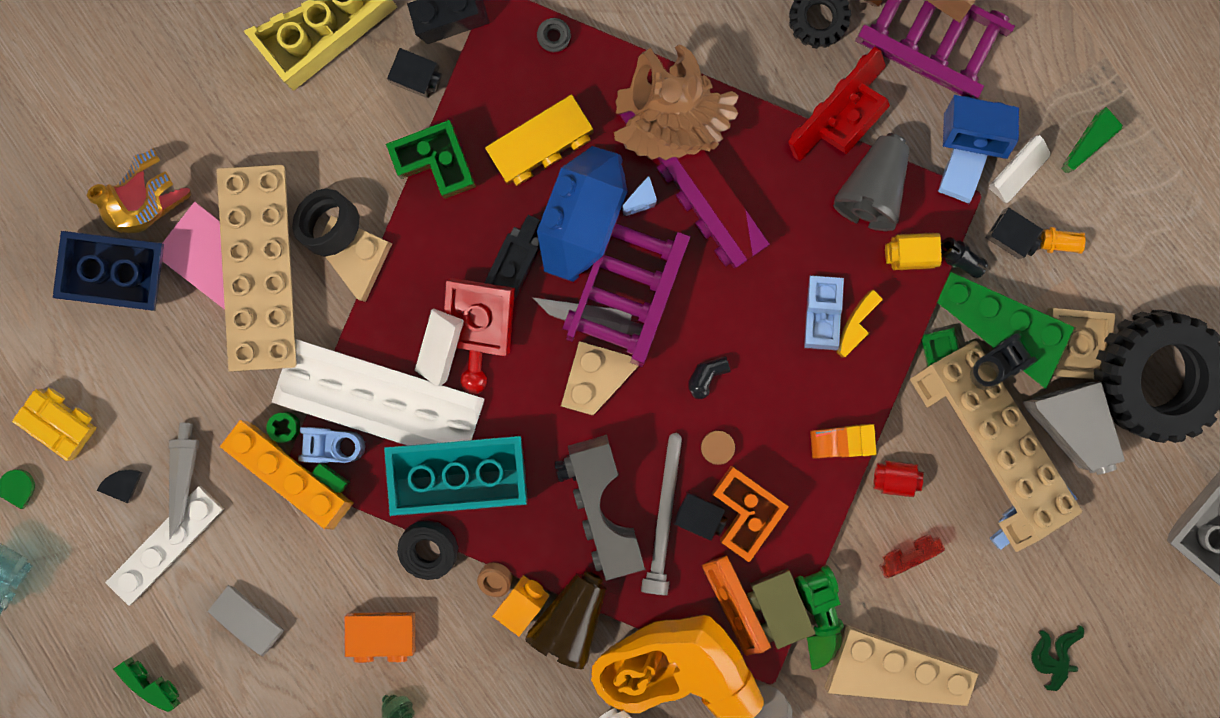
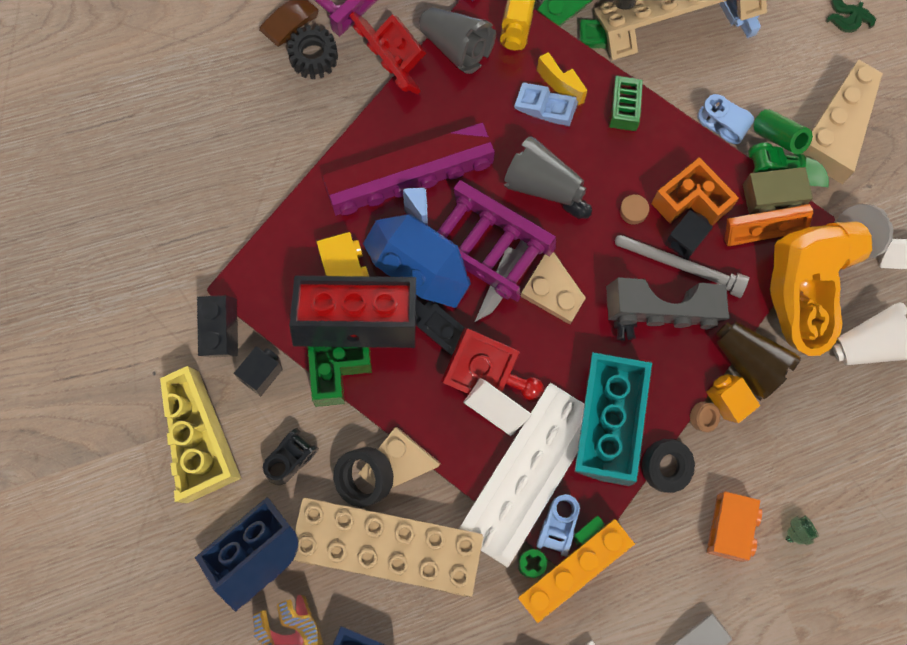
camera: 80 degrees left, 15 degrees down
(195, 252) = (359, 599): bright pink tile -> none
(210, 125) = (249, 554): none -> dark blue brick
(329, 136) = (290, 456): none -> black piece
(490, 162) = (353, 311): none -> brick
(546, 27) = (263, 241): dark grey plate -> none
(674, 112) = (359, 160): medium nougat piece -> none
(721, 332) = (543, 175): none -> dark grey cone
(825, 408) = (624, 121): none -> green slope
(844, 441) = (653, 111): leg -> none
(859, 600) = (783, 131): none -> green brick
(863, 537) = (726, 120): none -> light blue piece
(898, 478) = (689, 85): red brick -> none
(923, 550) = (753, 89): clear red plate -> none

